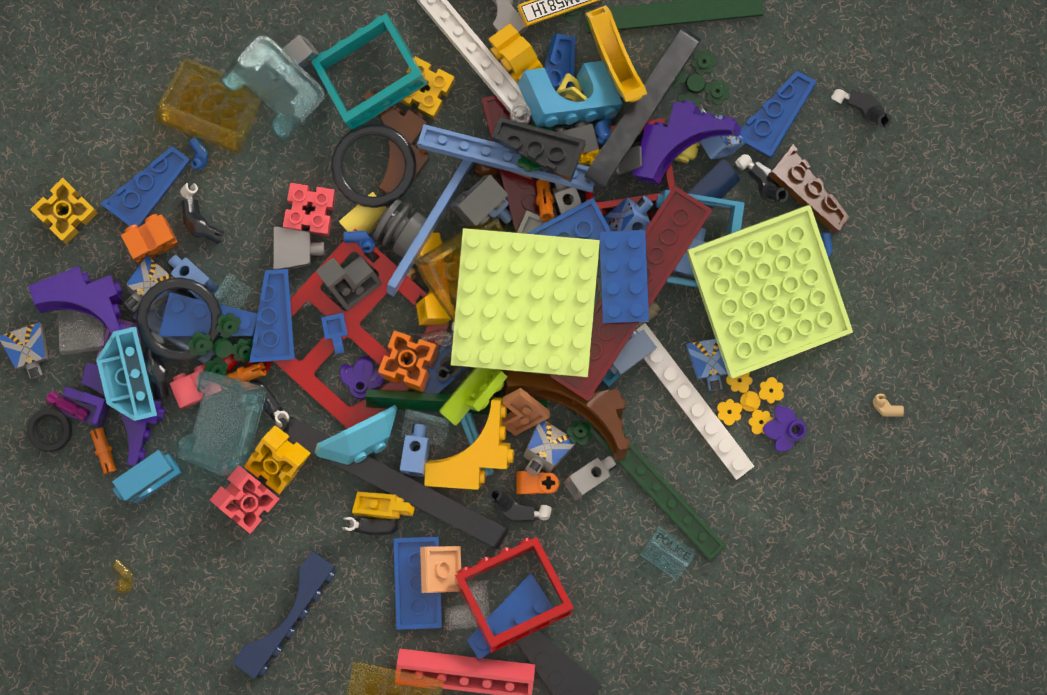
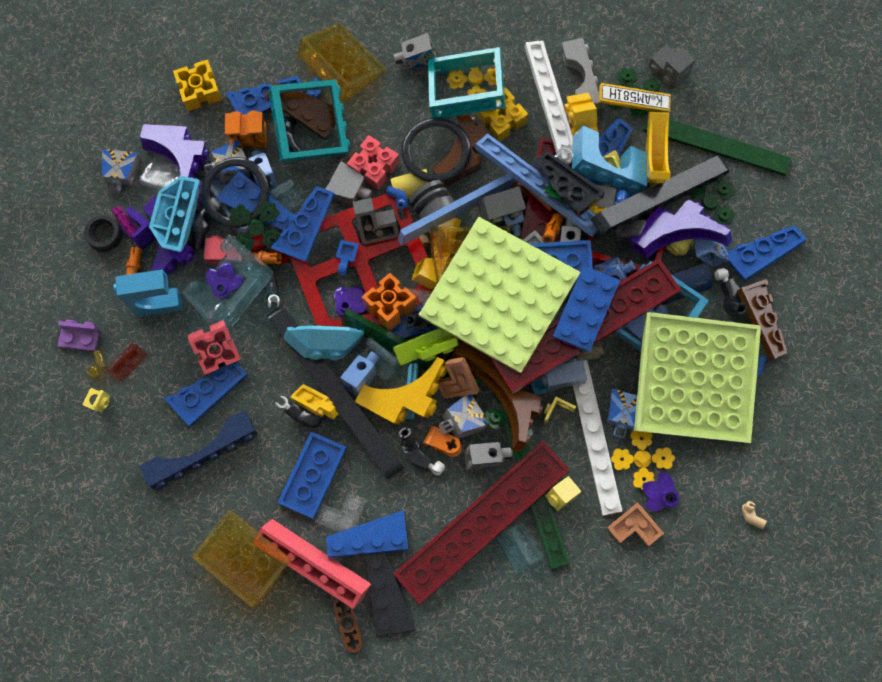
camera: 35 degrees right, 10 degrees down
(86, 556) = (78, 336): none -> medium lavender bracket
(153, 557) = (126, 361): none -> clear red slope
(153, 614) = (101, 401): none -> light yellow bracket
(187, 218) = (279, 125): none -> teal window
(205, 183) = (308, 111): none -> reddish brown wing
(214, 418) = (223, 277): none -> dark purple plate
(256, 556) = (197, 399): none -> blue wing
(276, 82) = (394, 57): clear light blue windscreen -> none
(277, 459) = (253, 329): yellow brick -> none
(371, 55) = (475, 78): none -> yellow plant
(439, 568) = (335, 472): light nougat tile -> none
(528, 627) = (381, 549): red window -> none
(618, 546) = (481, 522): none -> dark red plate
(631, 392) = (550, 407): none -> light yellow bracket
(686, 478) = (562, 493): none -> light yellow brick
(773, 469) = (635, 521): none -> nougat plate
(867, 104) = (840, 276): black arm -> none

